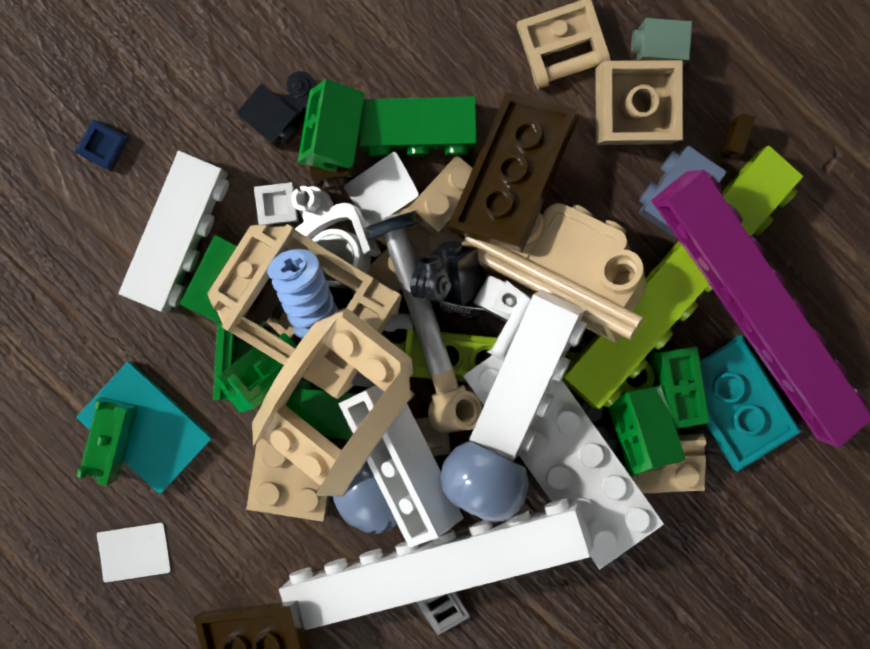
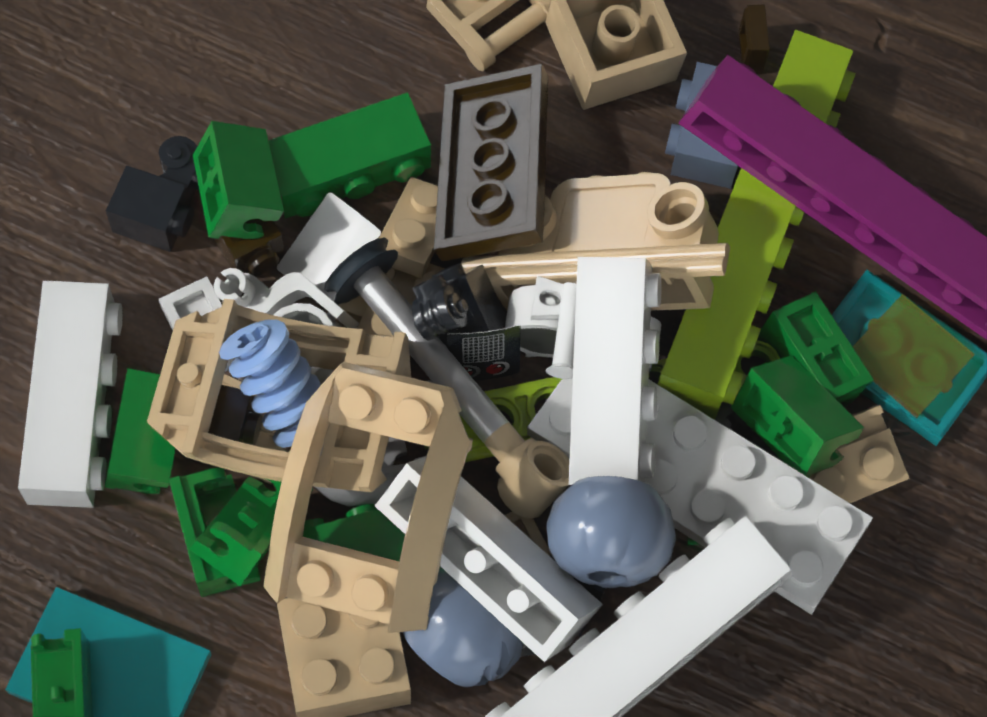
camera: 25 degrees left, 20 degrees down
(743, 408) = (911, 355): none -> clear yellow piece

